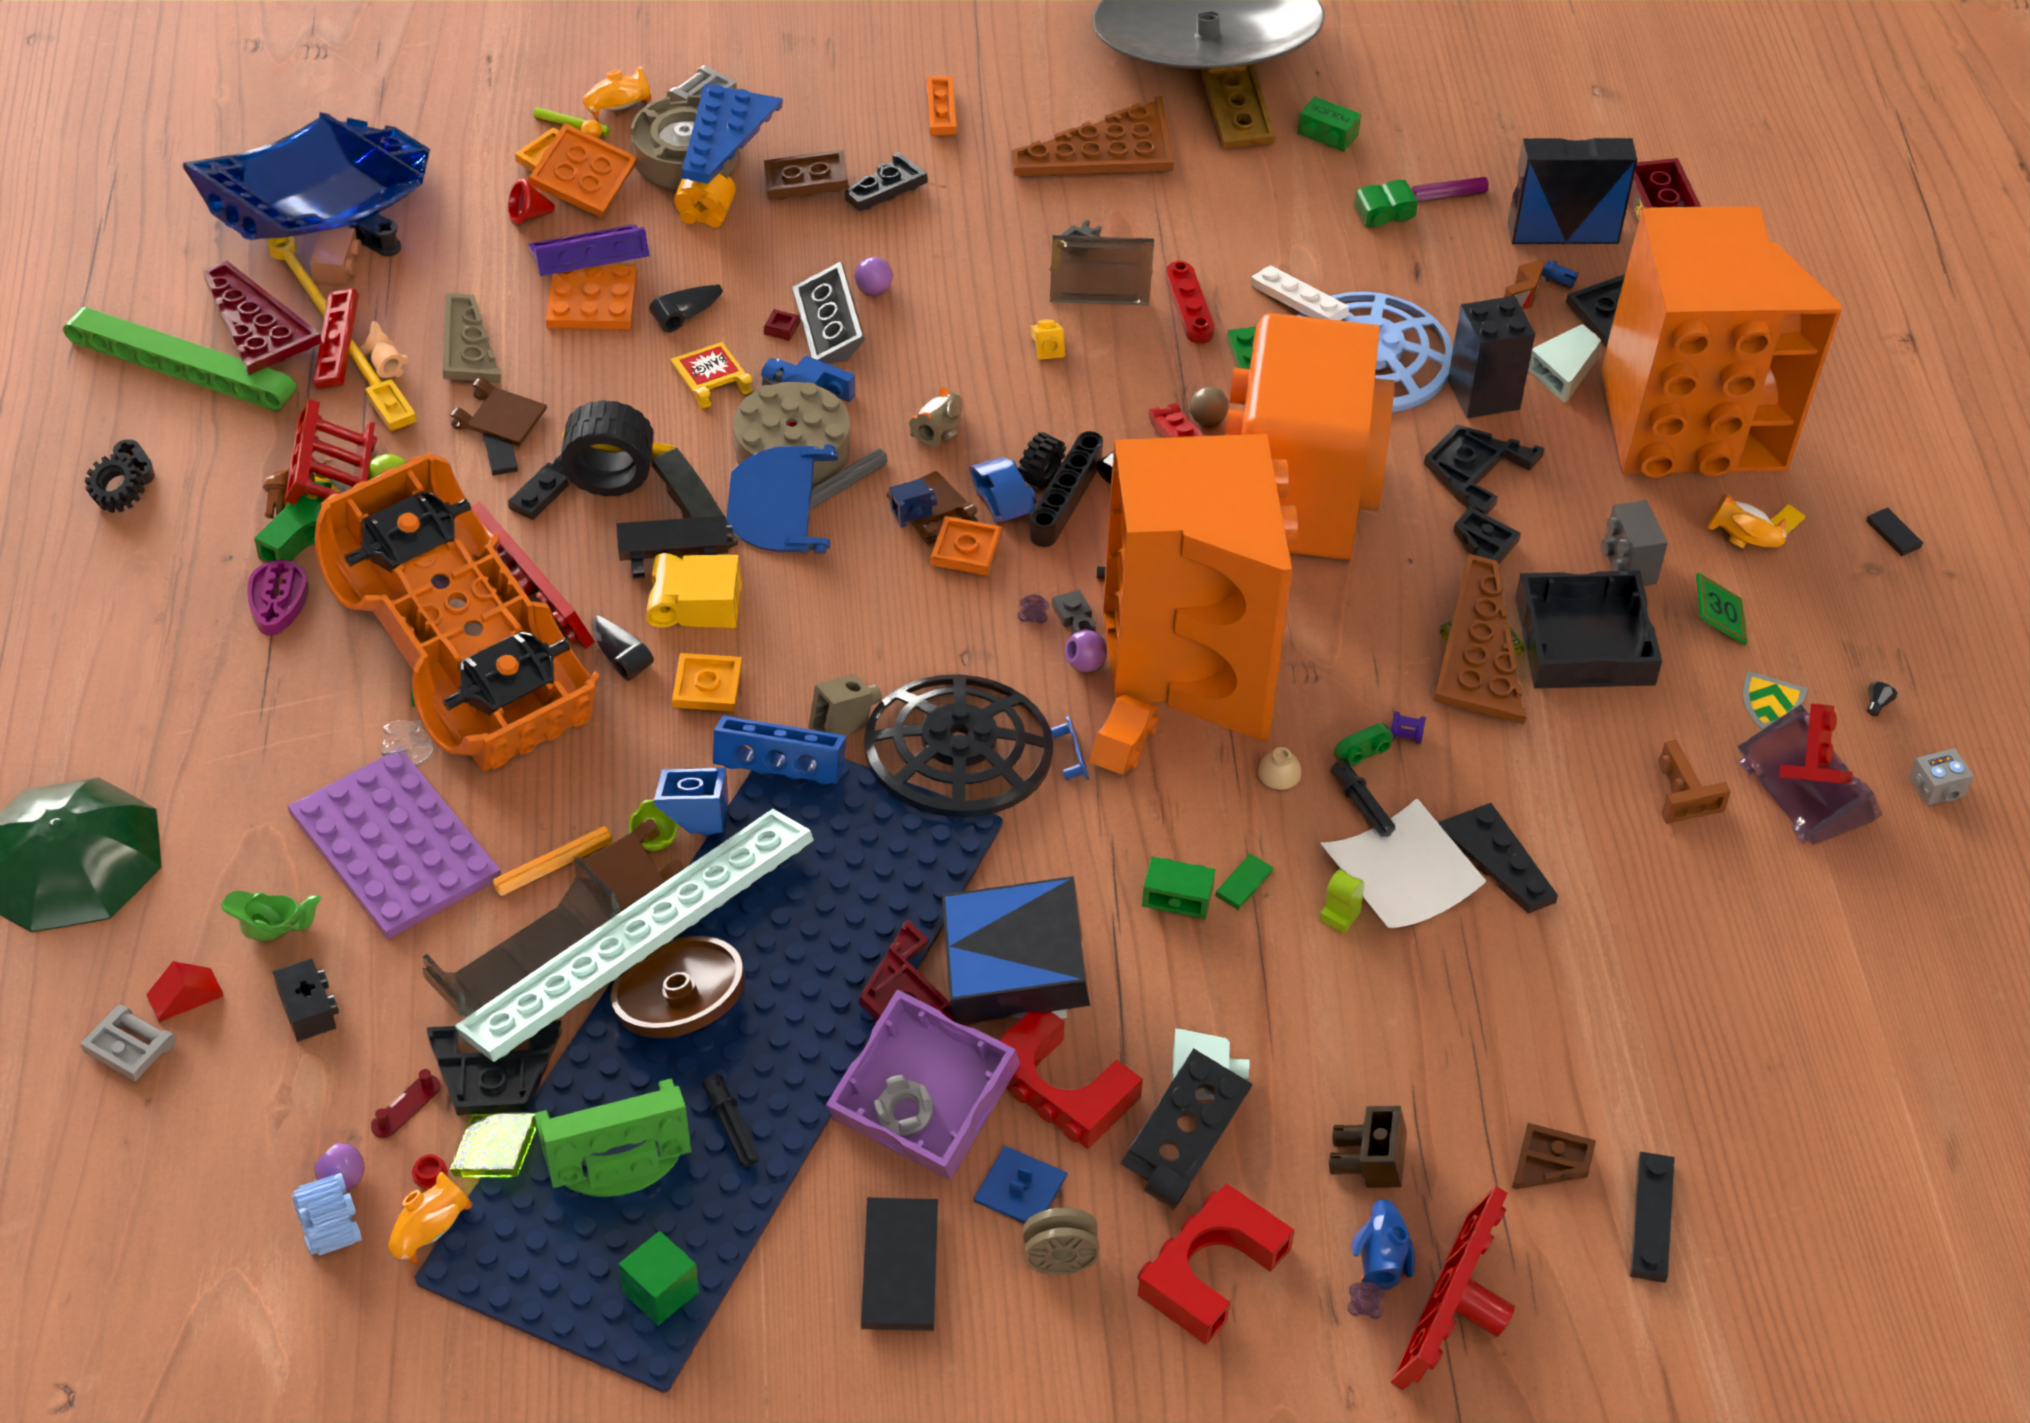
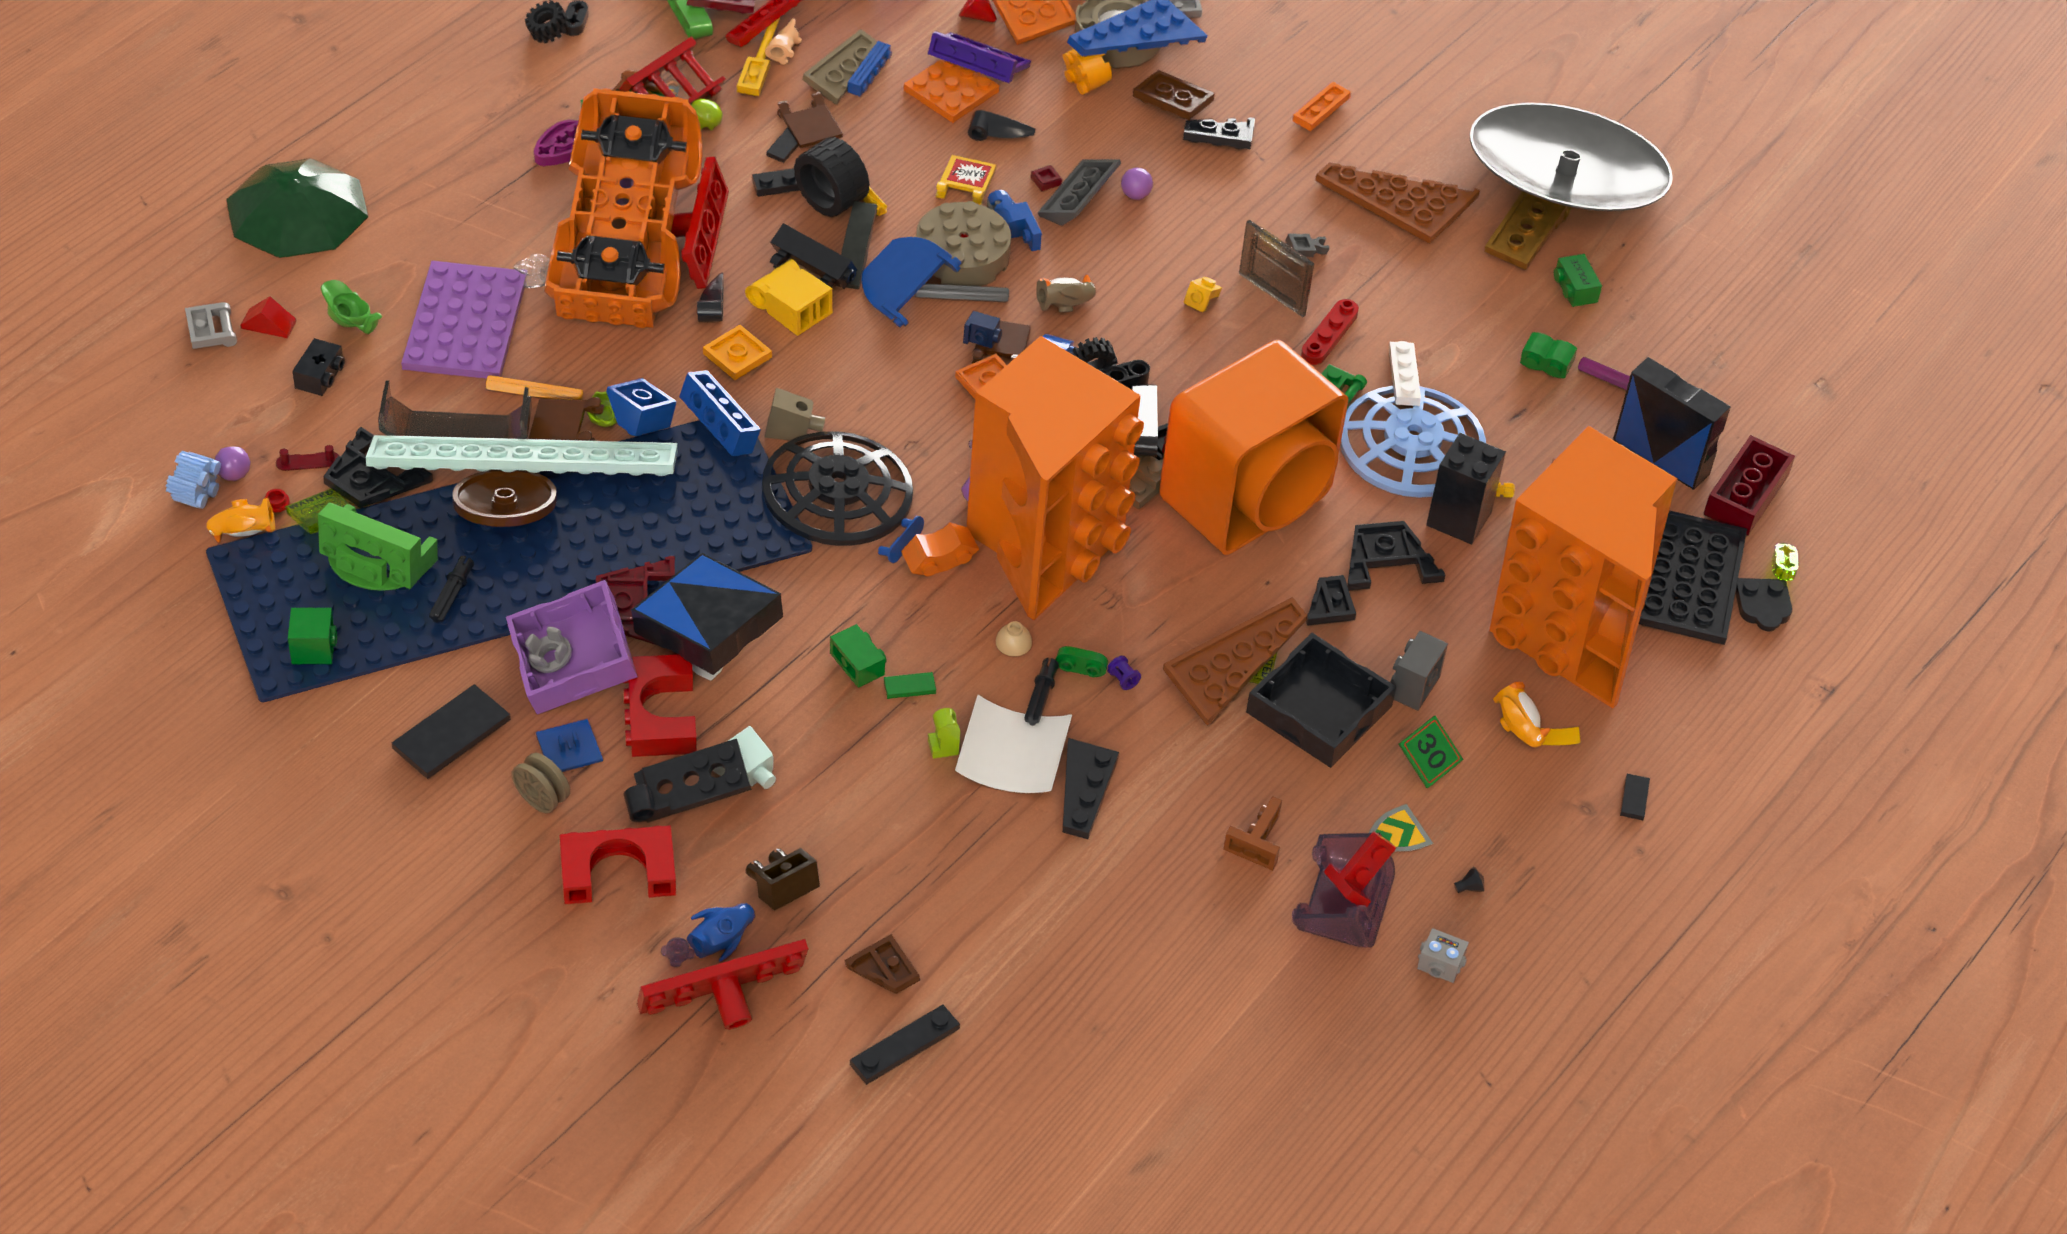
camera: 40 degrees right, 0 degrees up
(495, 326) = (869, 68): none -> blue piece

